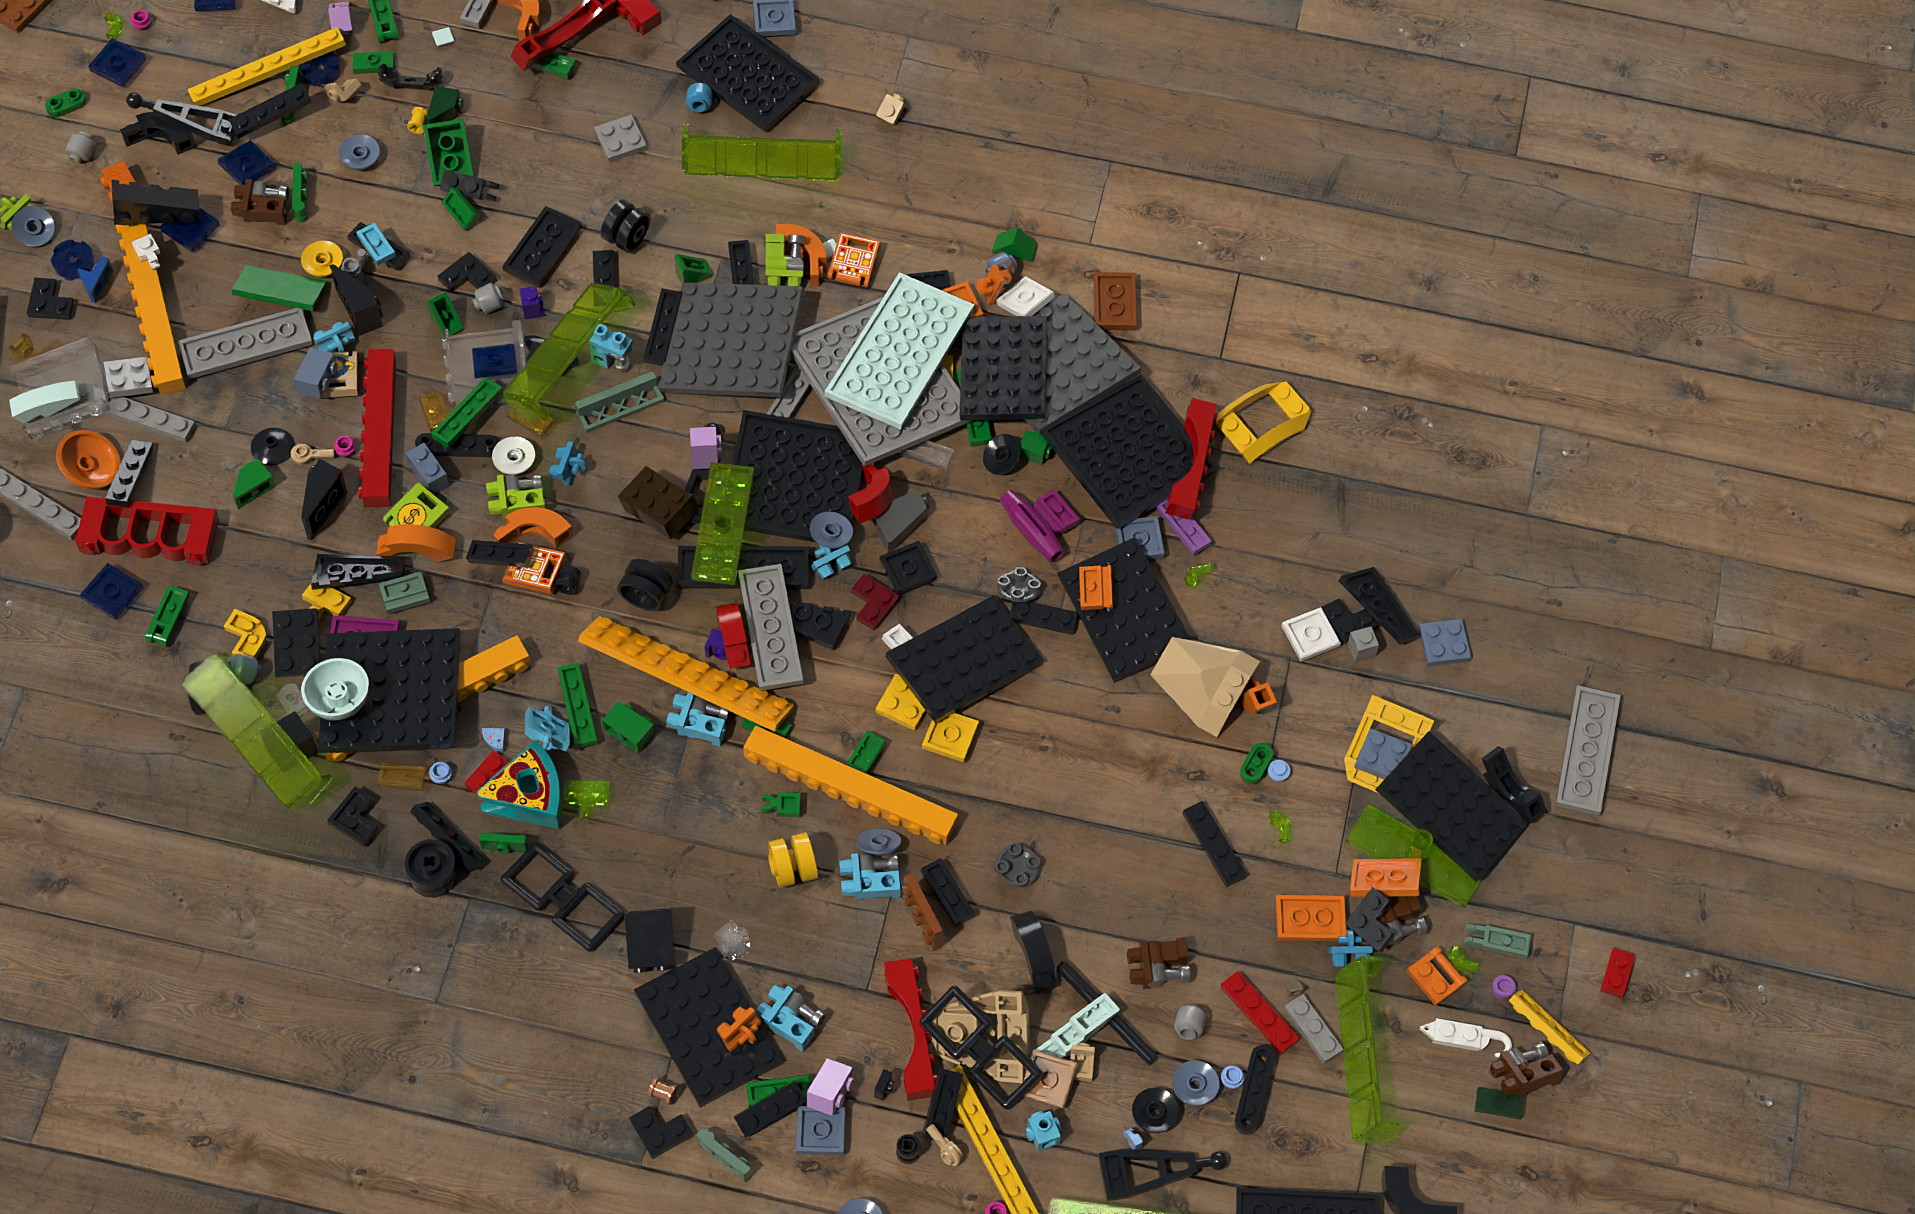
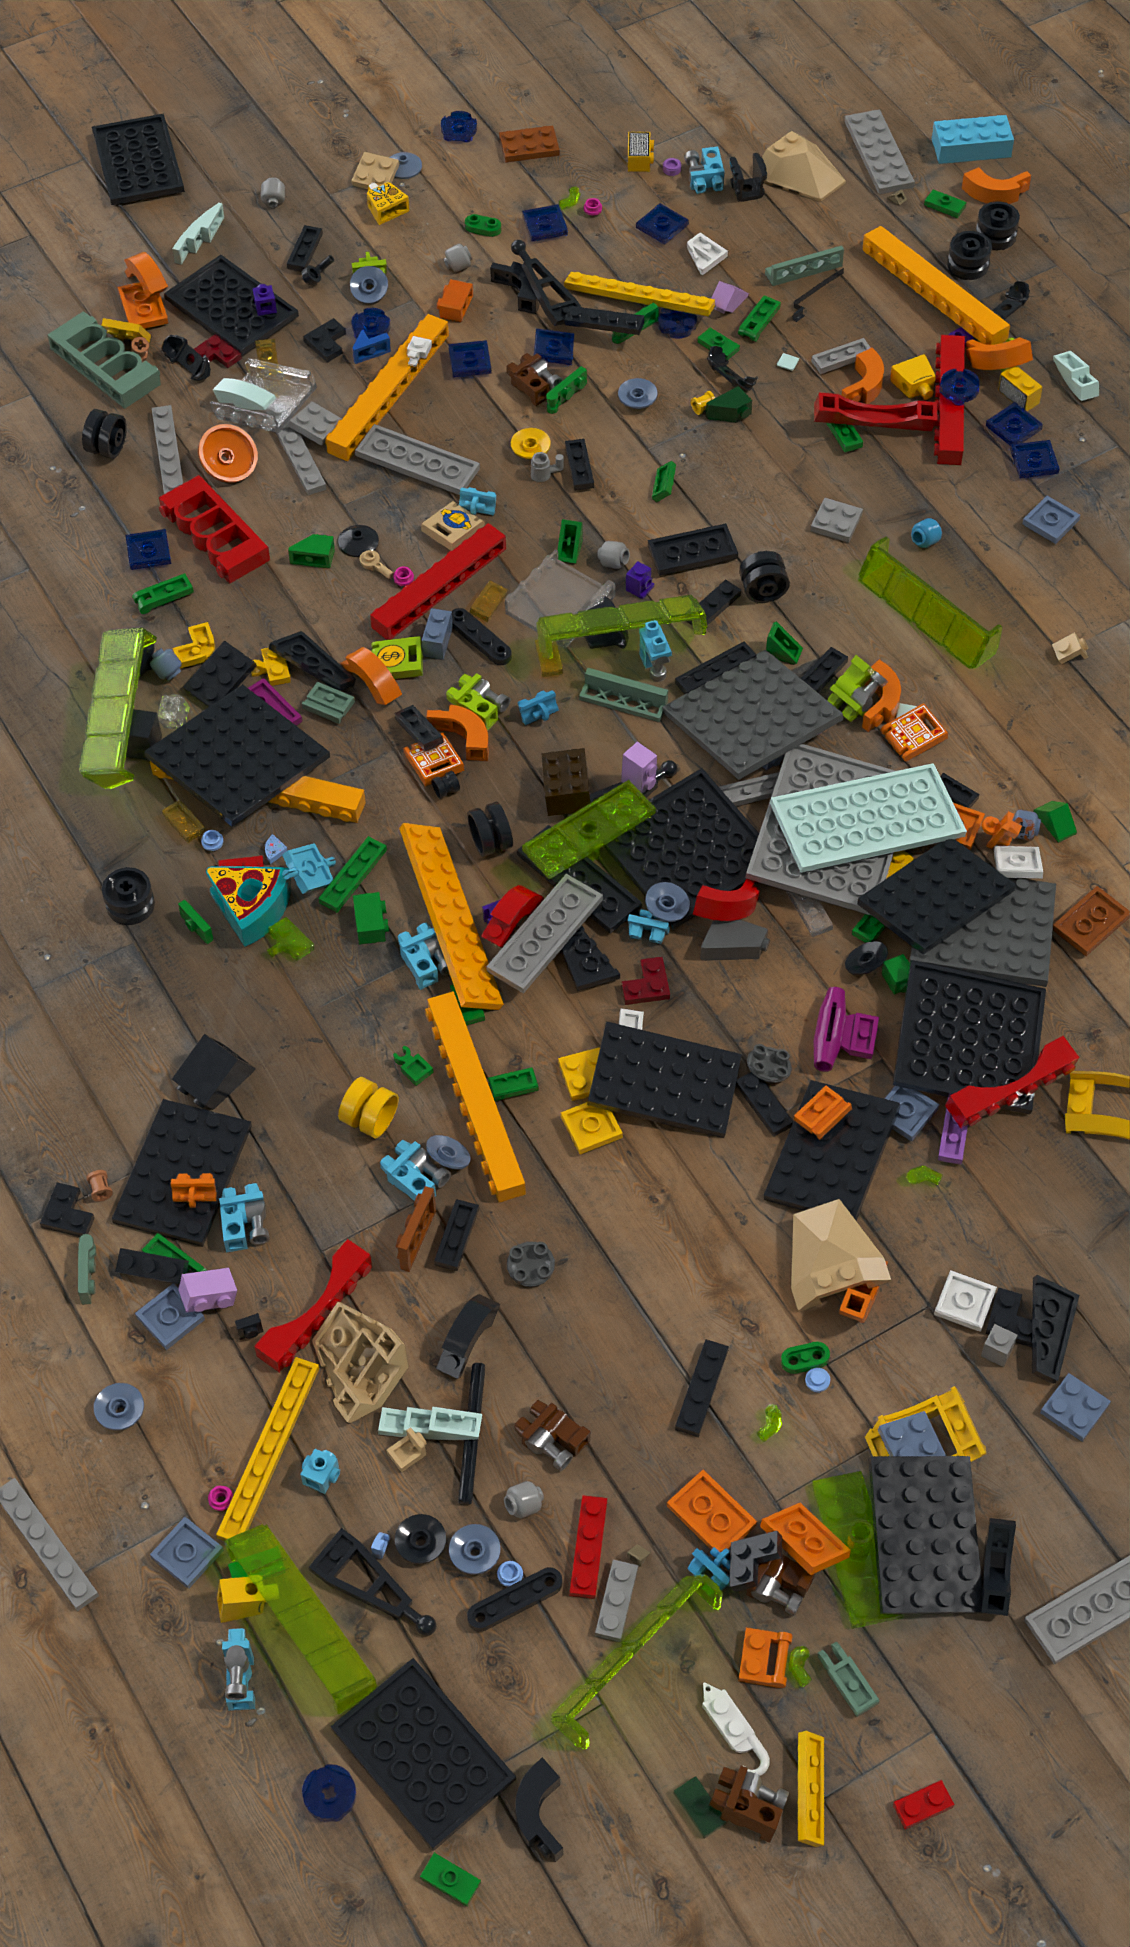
camera: 50 degrees right, 5 degrees down
(129, 473) = (243, 482): plate -> none
(153, 204) = (453, 321): black wedge -> none
(279, 287) = (480, 441): green tile -> none
(315, 373) = (433, 509): sand blue brick -> none
(322, 494) = (341, 593): black slope -> none
(335, 689) = (190, 716): light aqua piece -> none
(345, 92) = (677, 349): tan bracket -> none
(349, 818) = (119, 817): black plate -> none
(358, 301) = (515, 489): black slope -> none
(376, 244) = (574, 458): medium azure plate -> none
(445, 832) = (166, 886): black plate -> none
(448, 148) = (700, 437): green slope -> none
(466, 269) = (621, 525): black plate -> none
(466, 412) = (504, 615): green plate -> none
(467, 185) = (687, 469): black hinge -> none
(494, 361) = (564, 596): clear blue plate -> none
(513, 448) = (507, 671): white dish -> none
(563, 896) = (192, 992): black bar -> none
(732, 940) = (266, 1127): clear brick -> none
(748, 72) = (985, 543): black plate -> none
(905, 1153) = (214, 1394): black wheel -> none
(908, 567) = (699, 980): black plate -> none
(943, 1102) = (269, 1379): black plate -> none
(949, 1151) = (238, 1420): tan plate -> none
(980, 1047) = (340, 1364): black bar -> none
(1055, 1082) = (369, 1438): medium nougat tile -> none
(1503, 987) = (811, 1720): medium lavender tile -> none

